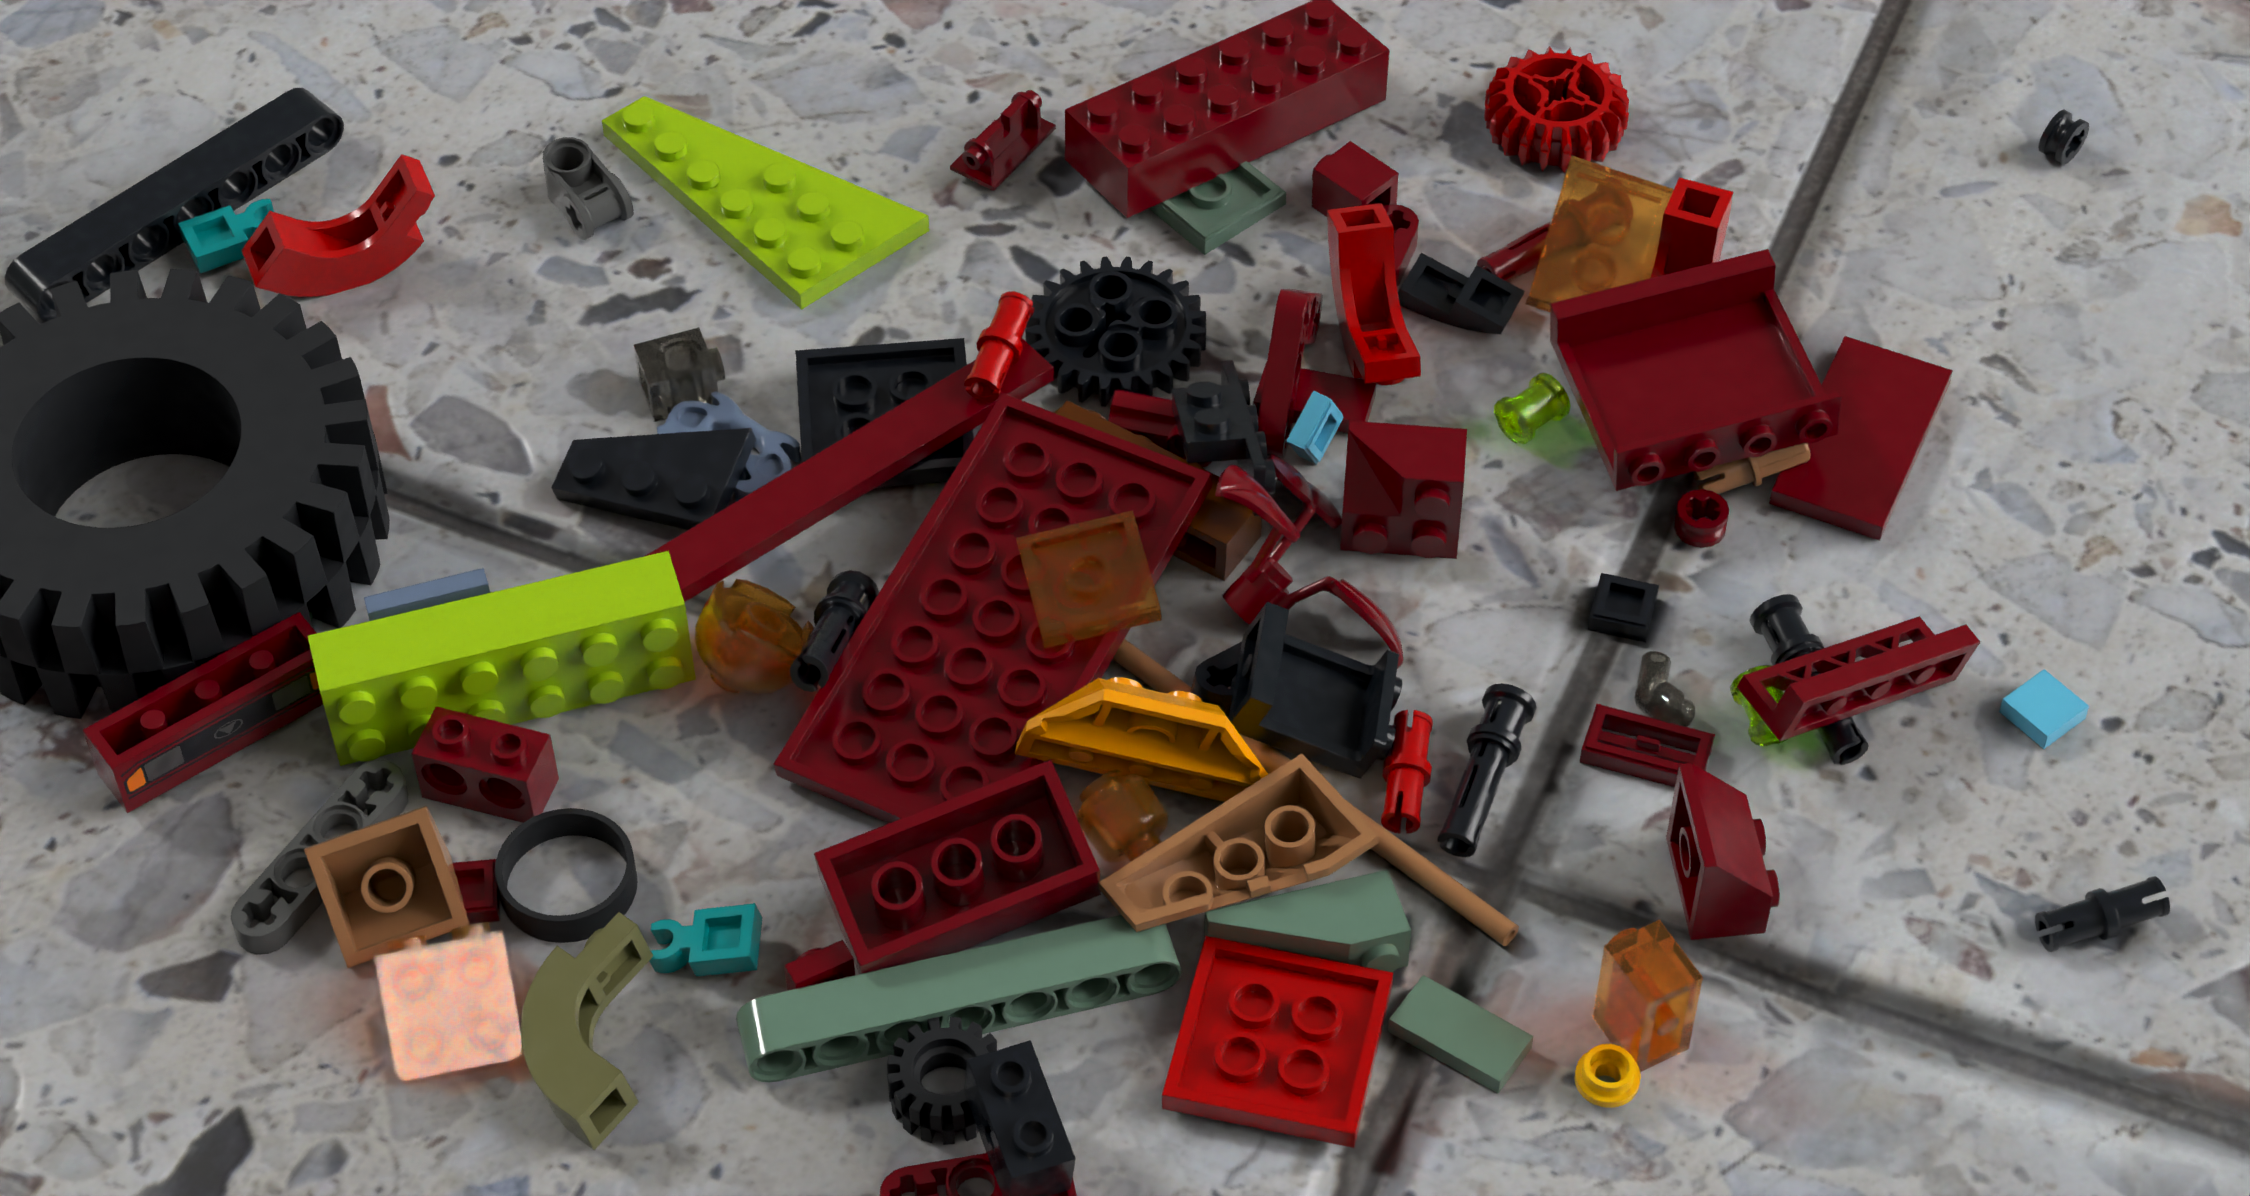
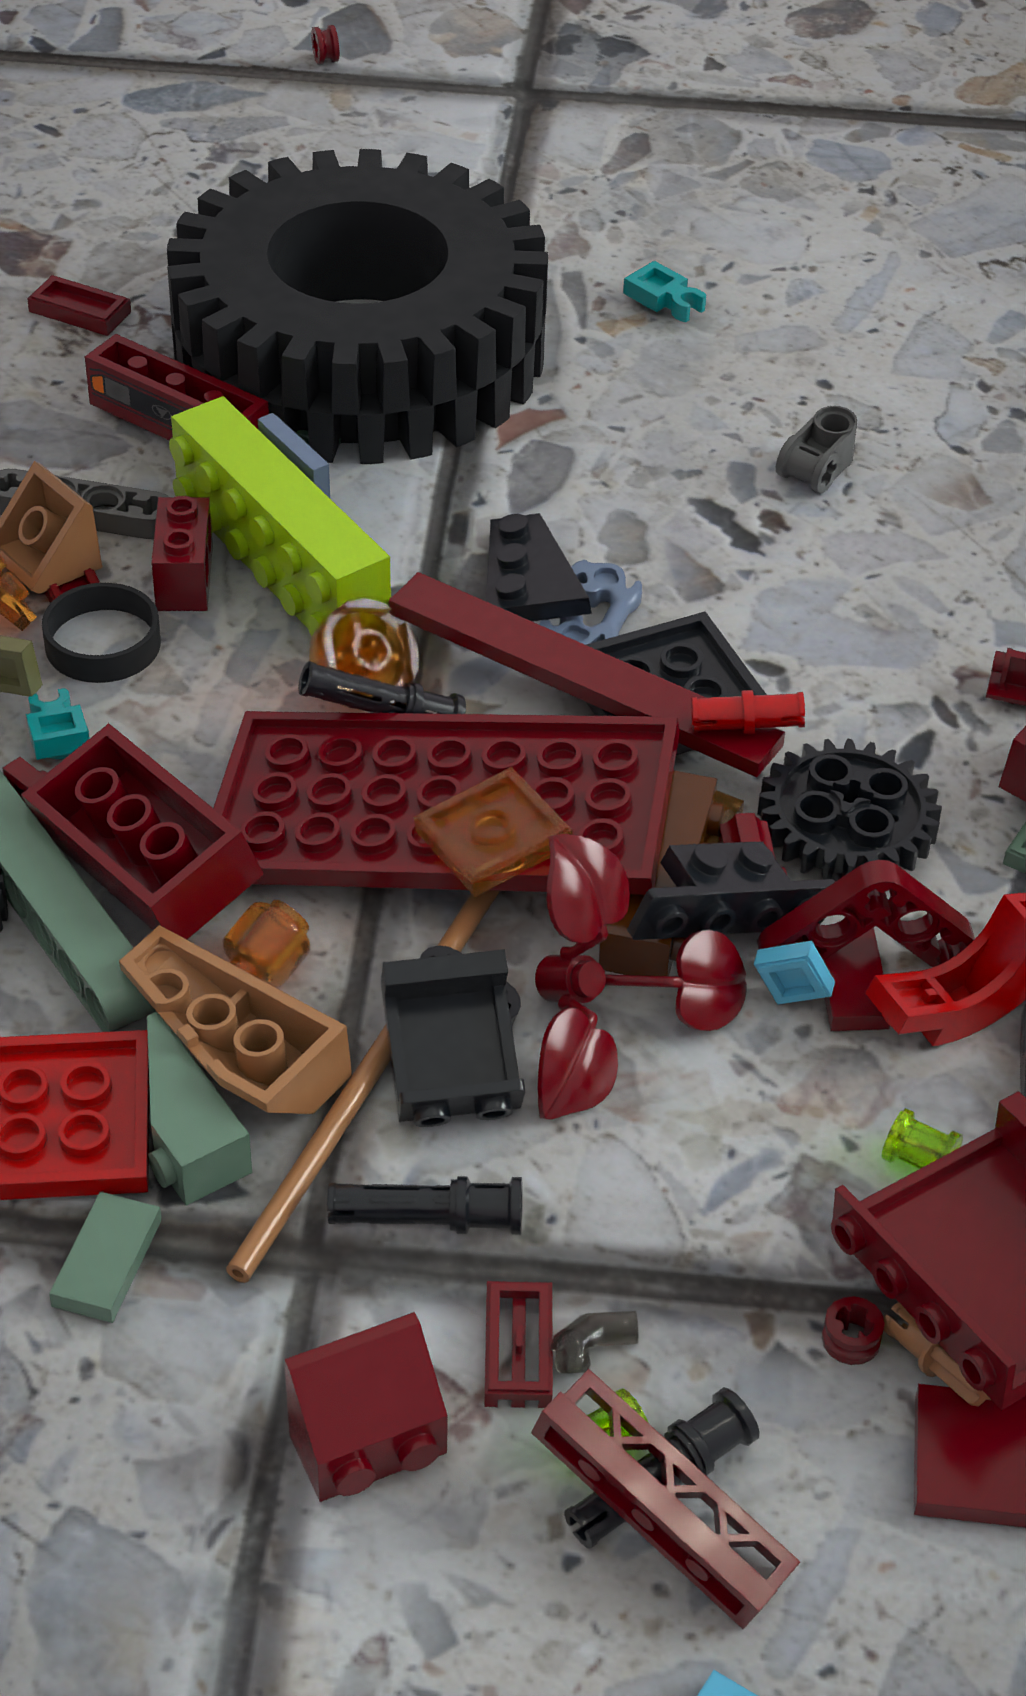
camera: 70 degrees right, 5 degrees down
(145, 218) = (711, 264): black beam -> none
(346, 251) = (670, 342): red arch -> none
(677, 371) = (645, 551): clear smoke brick -> none
(774, 211) = (880, 566): lime wing -> none
(1144, 732) = (340, 922): light orange wedge -> none
(1403, 489) = (734, 1053): dark red slope -> none
(1407, 772) = (403, 1143): red pin -> none
(1607, 1061) = (78, 1370): yellow plate -> none
(1623, 607) = (699, 1286): black tile -> none
(1647, 994) = (154, 1373): clear orange brick -> none

